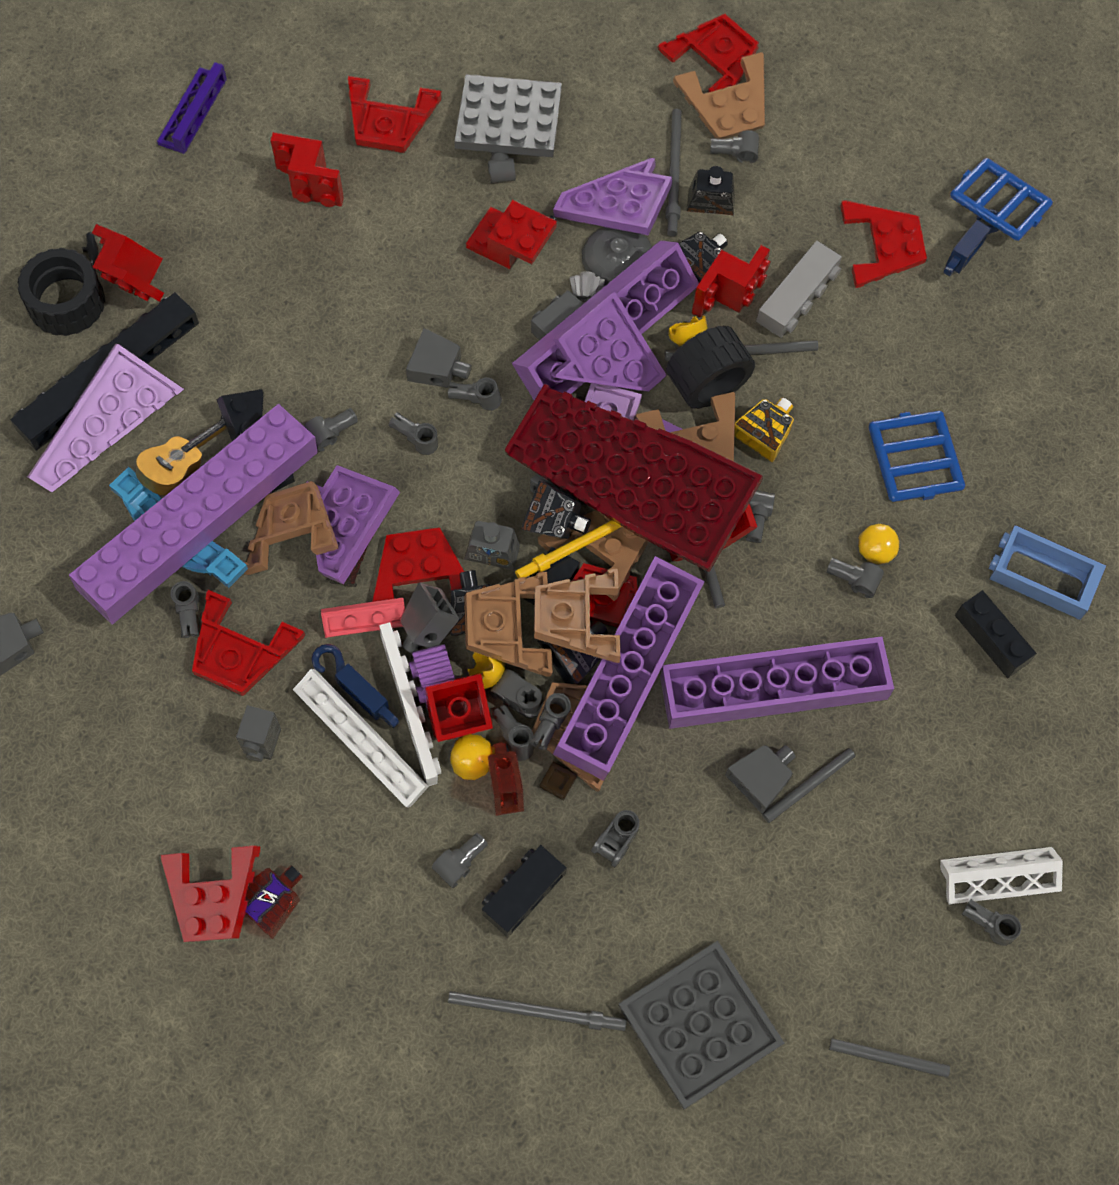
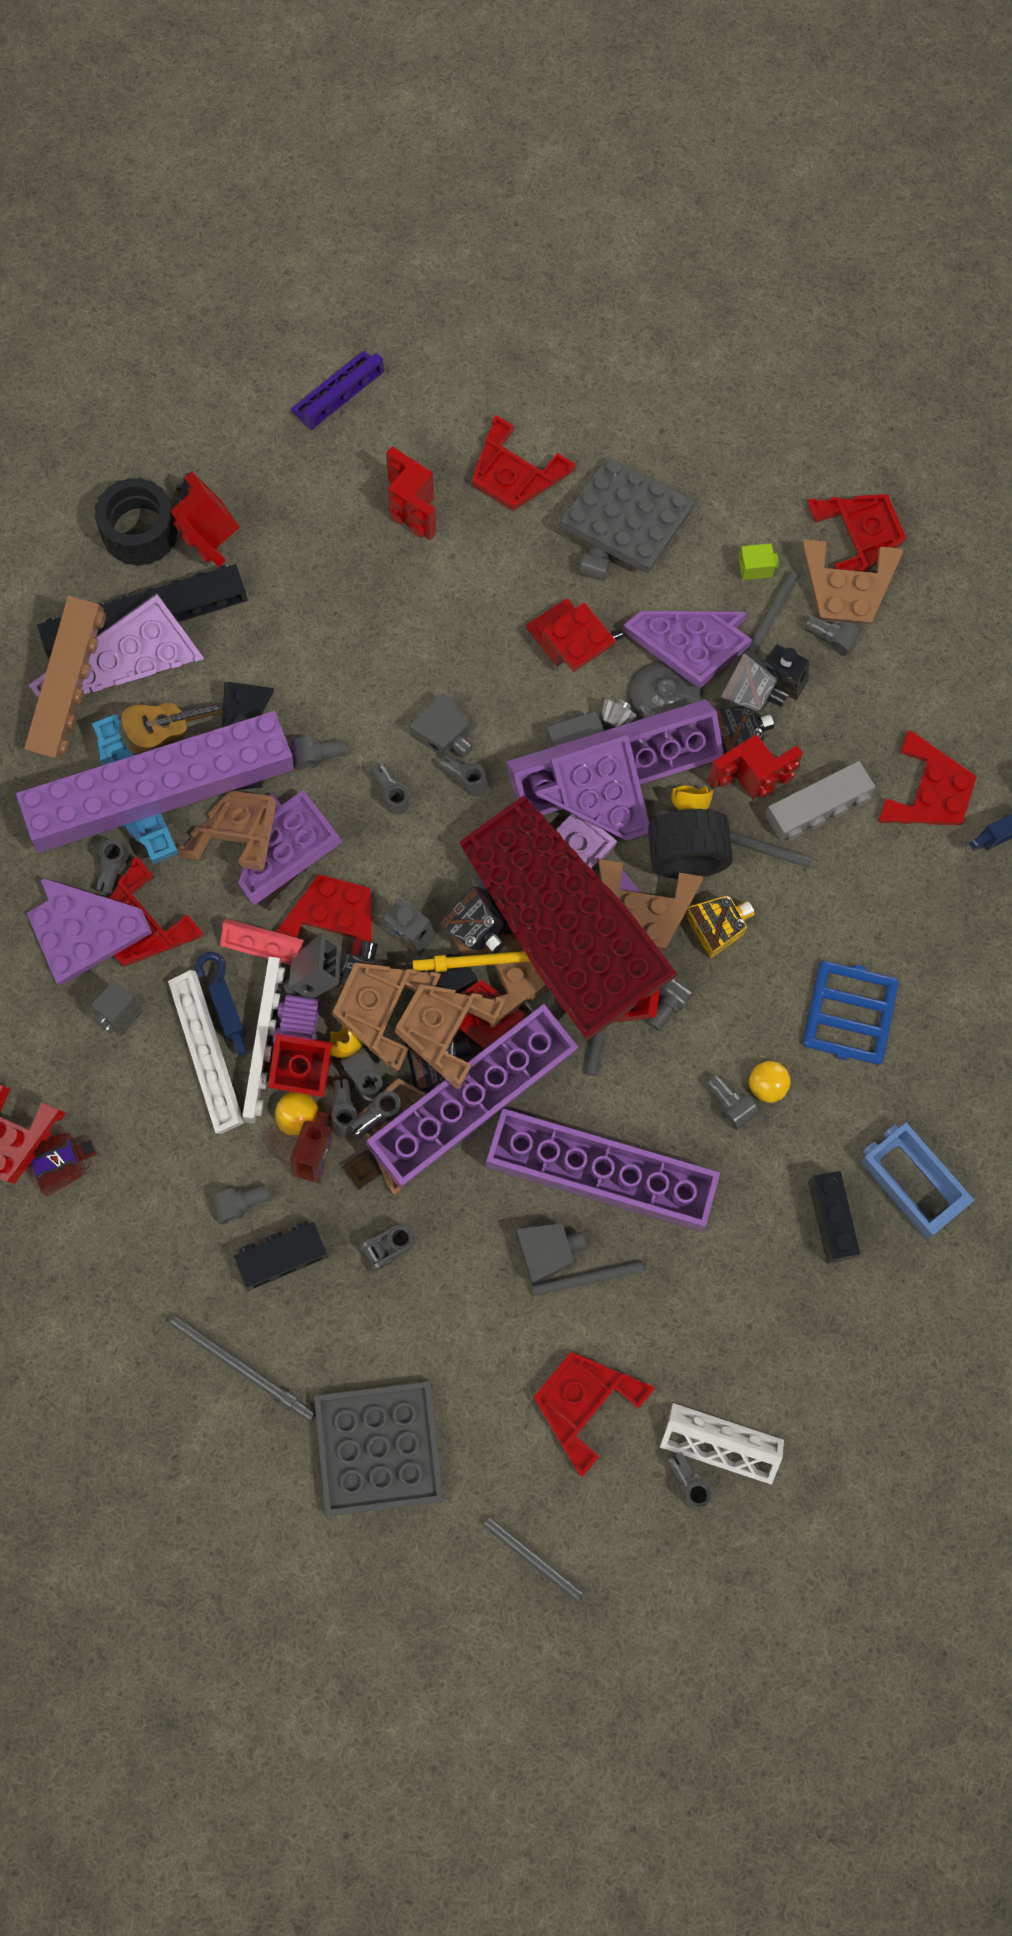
camera: 25 degrees right, 5 degrees up
(63, 455) = (65, 678): none -> medium nougat brick
(189, 675) = (83, 929): none -> medium lavender wing
(641, 112) = (757, 561): none -> lime brick
(697, 211) = (754, 684): none -> torso
(852, 895) = (576, 1394): none -> red wing

